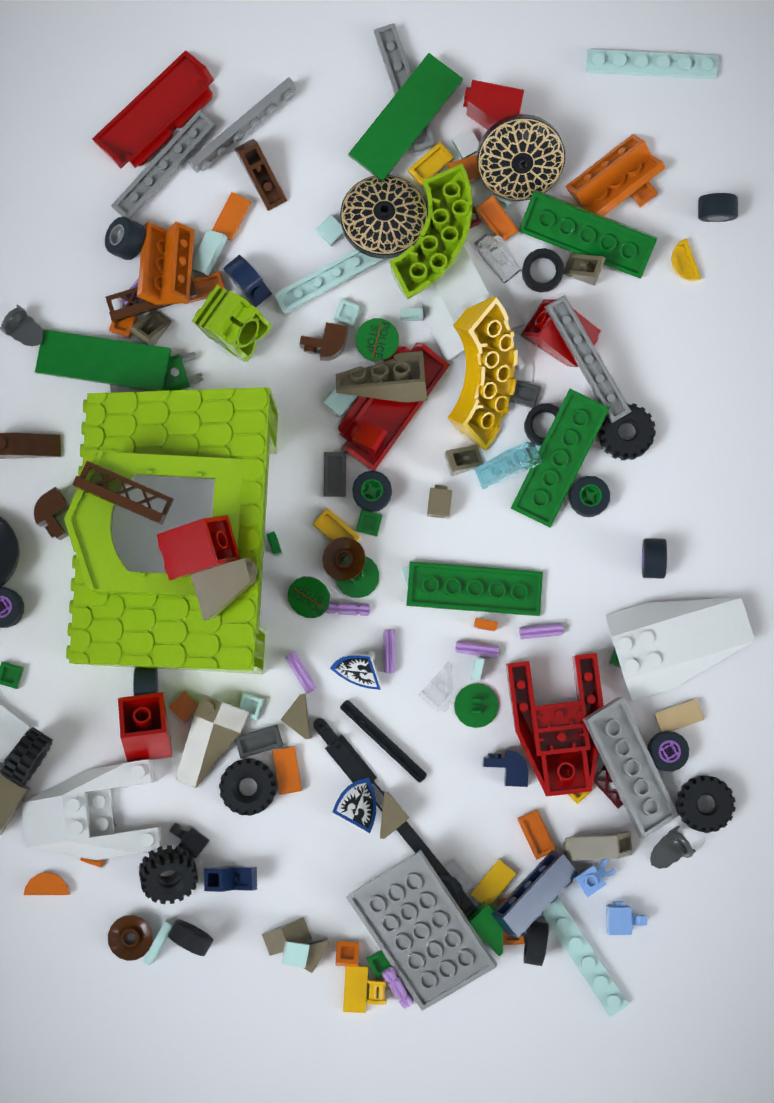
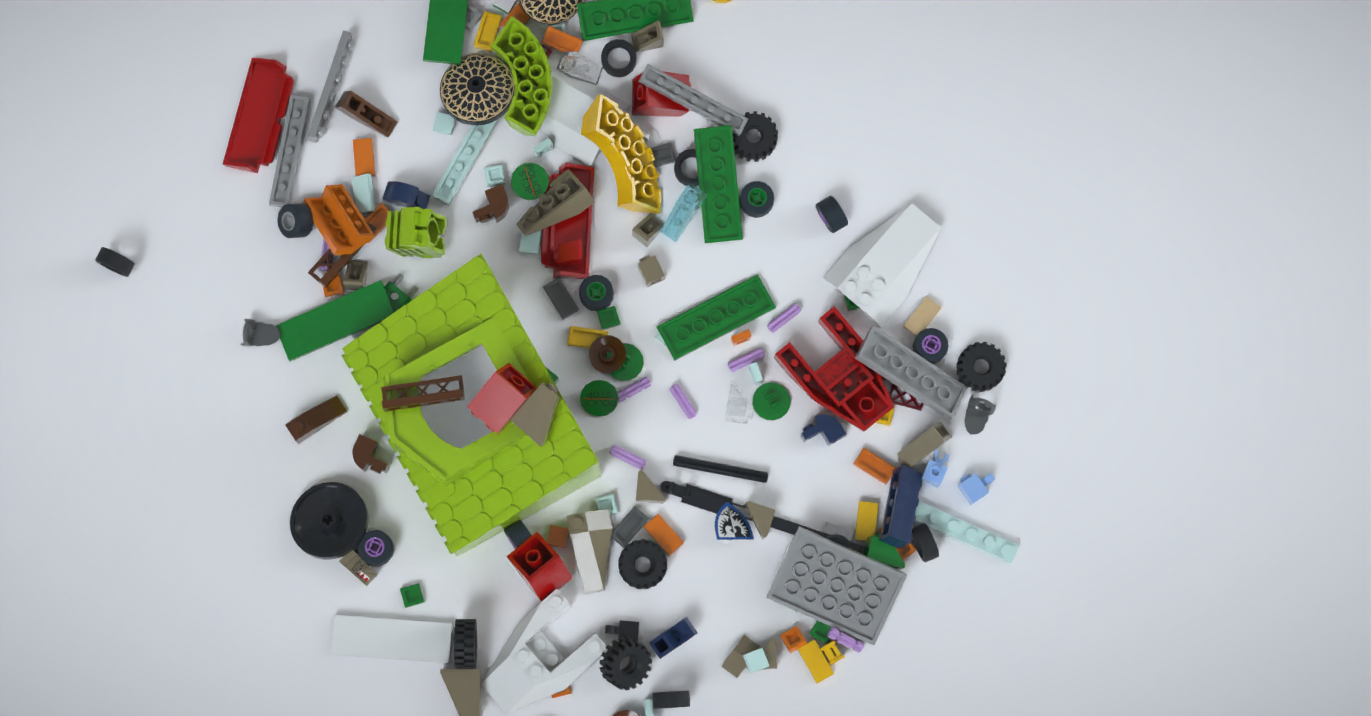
camera: 40 degrees left, 5 degrees down
(358, 670) = (669, 428): shield -> none

